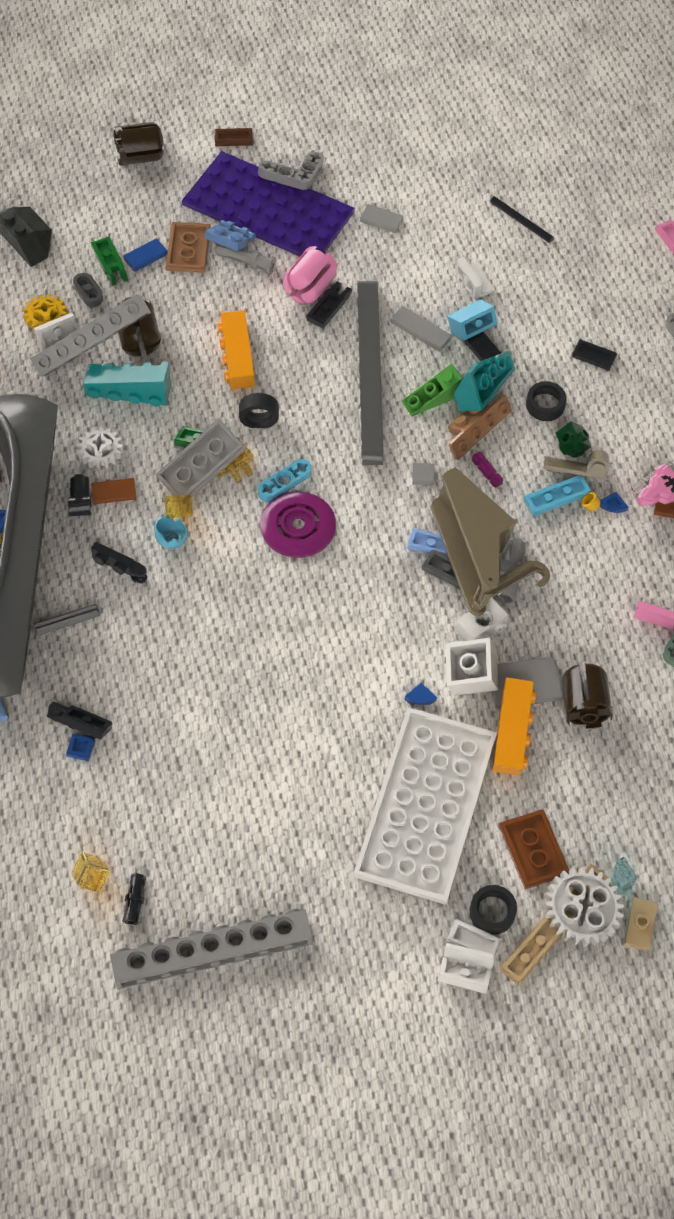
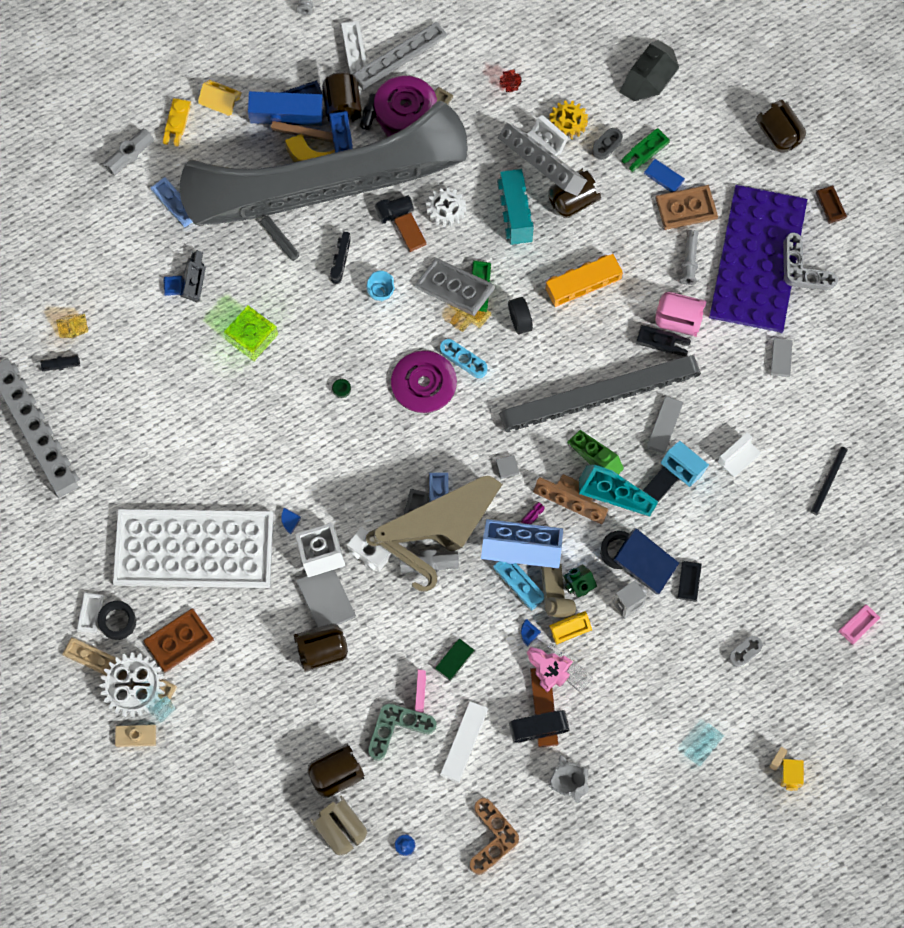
camera: 75 degrees right, 10 degrees up
(178, 506) = (404, 282): clear yellow panel -> none
(178, 675) = (251, 333): none -> clear neon green brick
(230, 235) = (703, 233): medium blue plate -> none
(277, 605) = (341, 388): none -> dark green tile
(466, 968) = (62, 611): white bracket -> none
(513, 726) = (276, 596): light orange brick -> none
(522, 472) = (522, 543): none -> light blue brick
(567, 378) = (646, 561): none -> dark blue tile
(591, 501) = (521, 612): yellow hinge -> none
(607, 400) = (630, 599): none -> light grey brick
(619, 463) = (570, 627): none -> yellow tile
(627, 577) = (454, 659): none -> dark green tile

